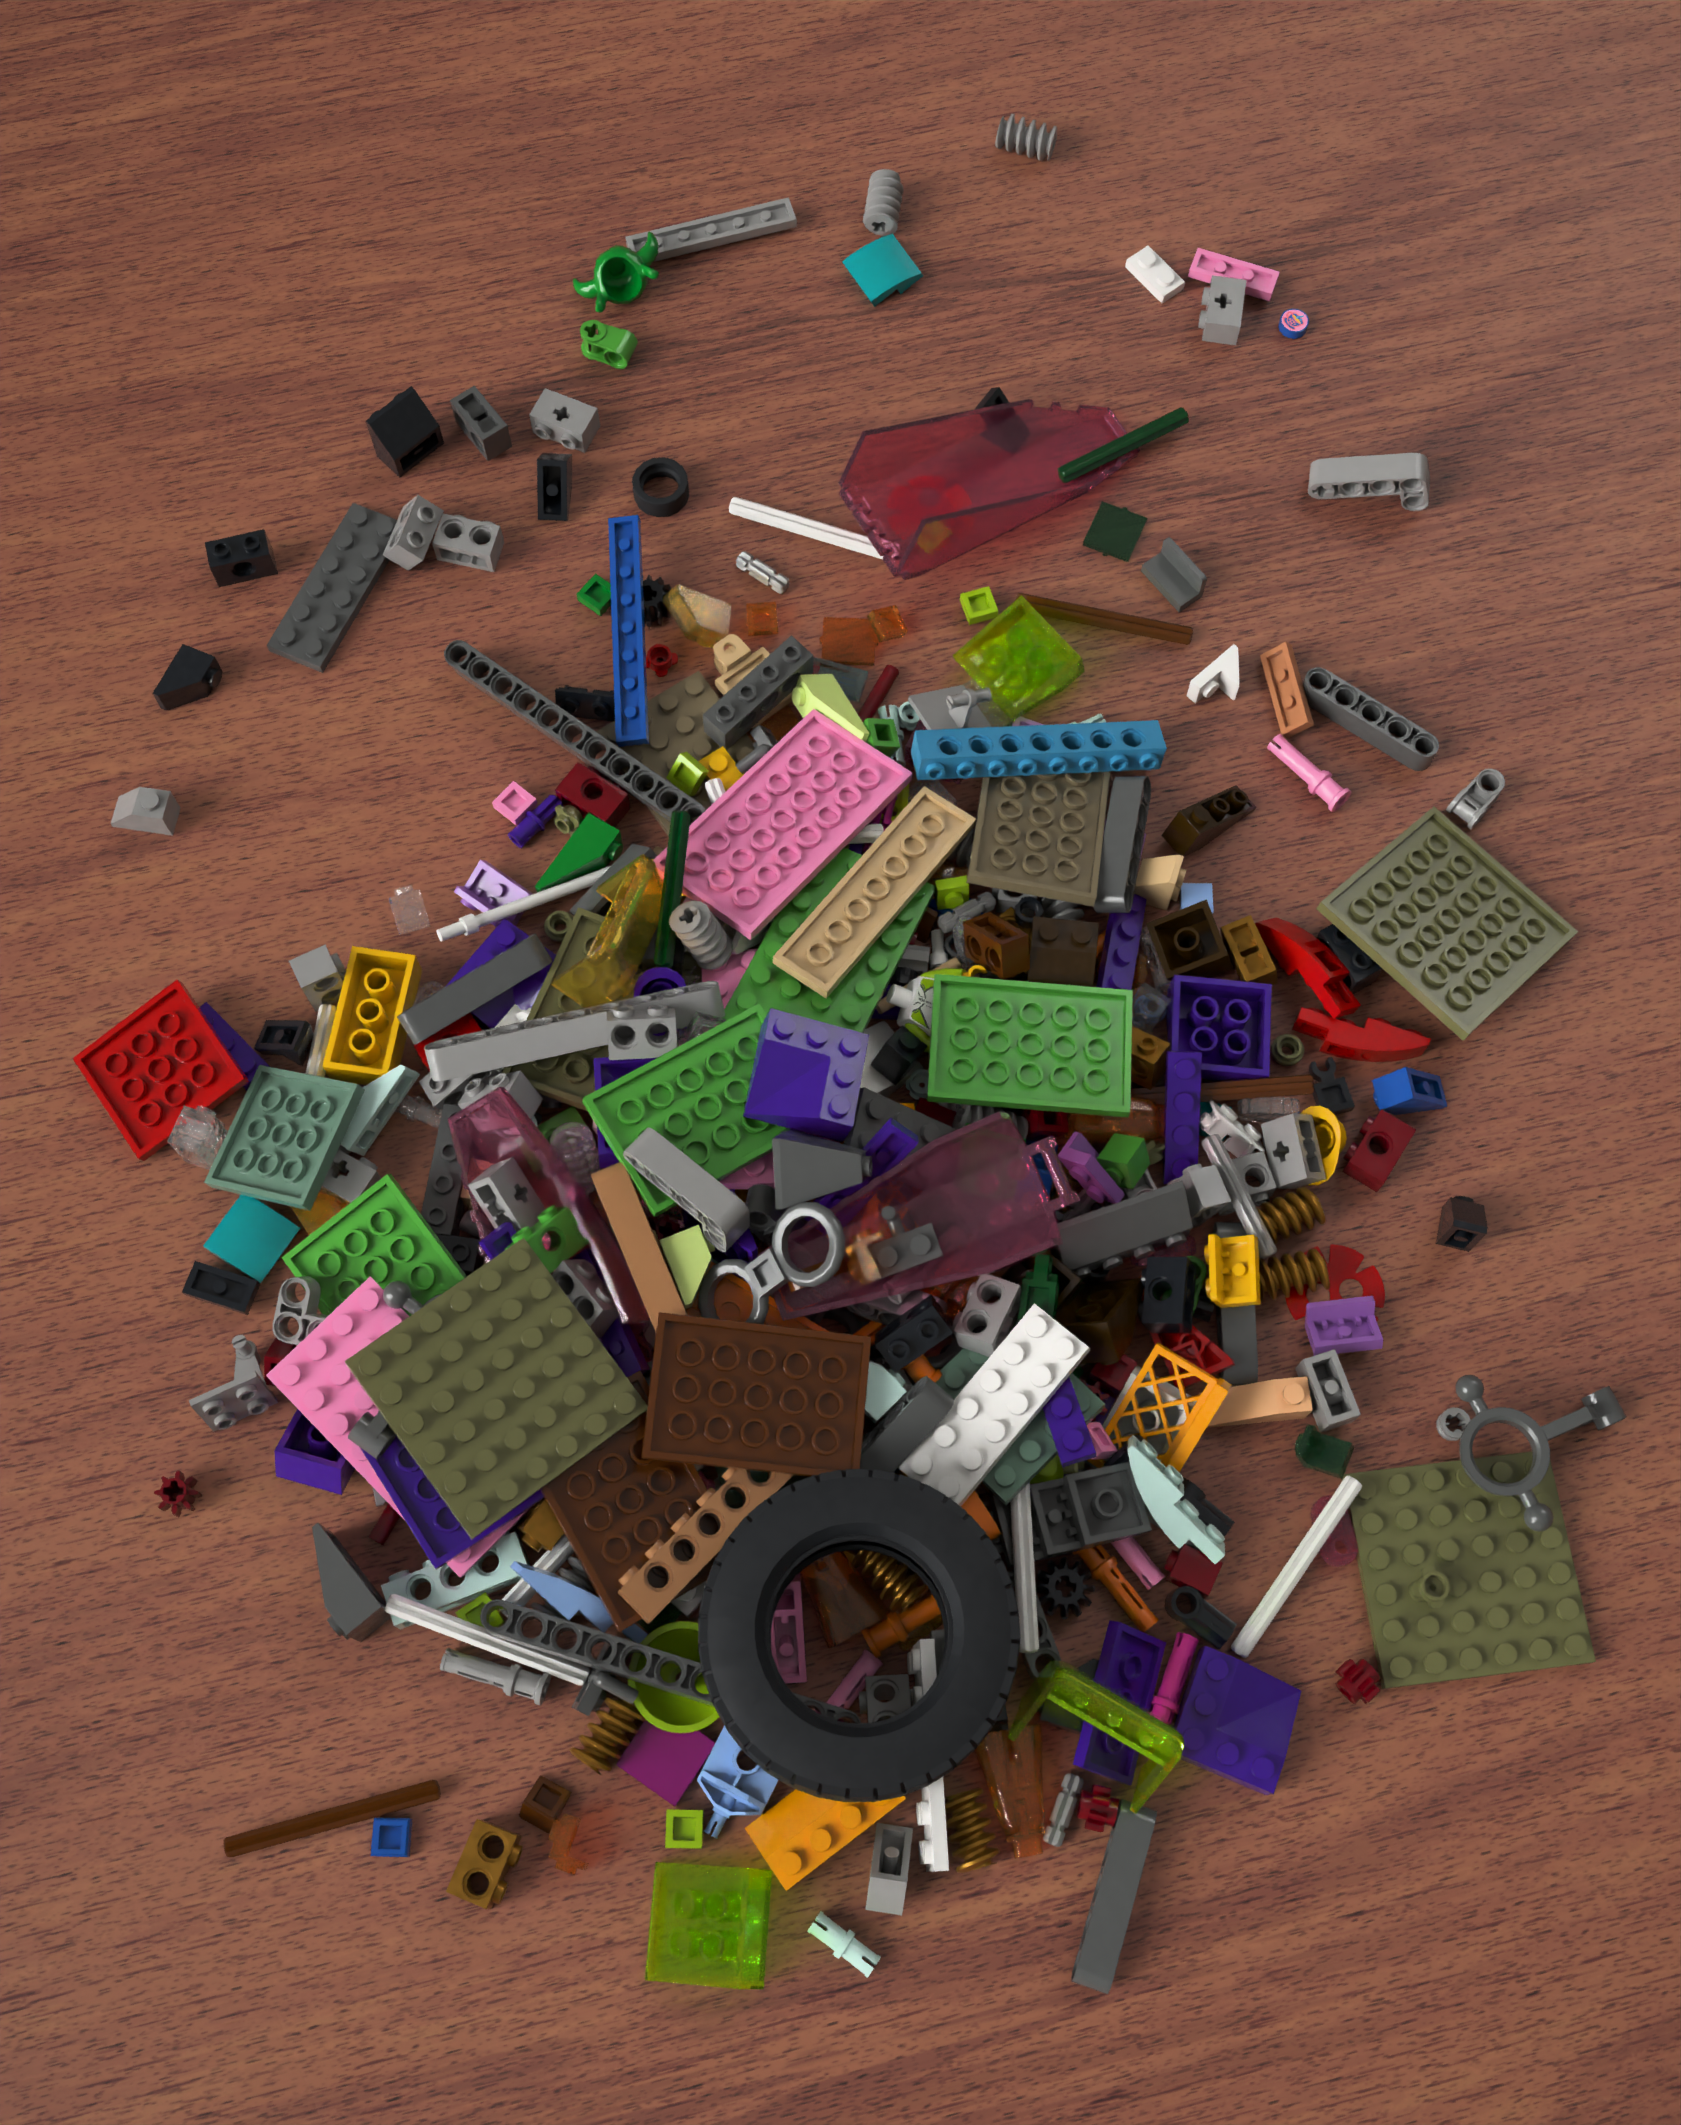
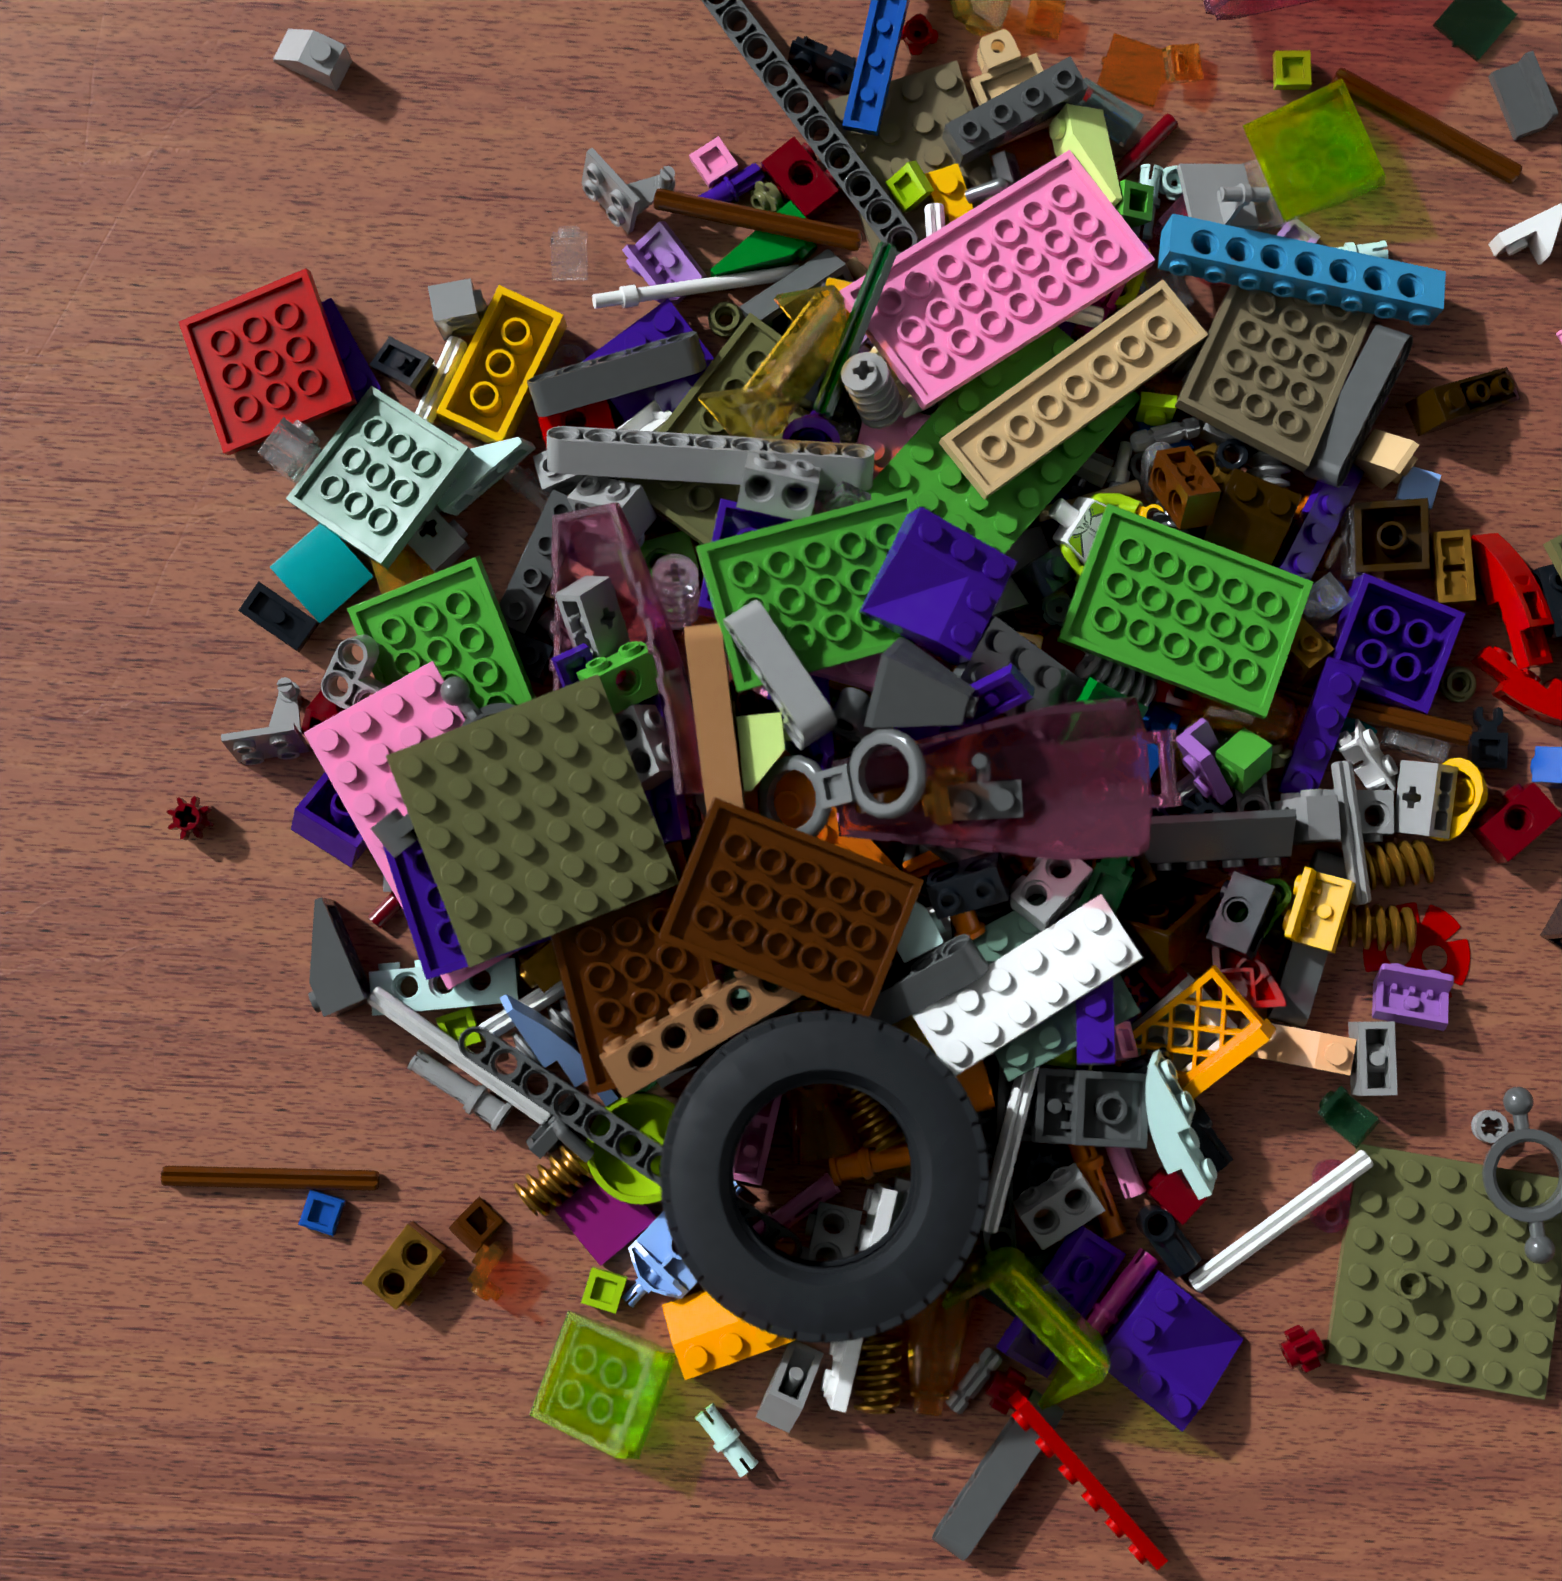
camera: 15 degrees right, 15 degrees up
(439, 850) = (620, 199): none -> light grey plate
(564, 834) = (757, 219): none -> reddish brown axle
(1095, 1616) = (1064, 1213): none -> light grey brick
(1188, 1864) = (1076, 1471): none -> red plate

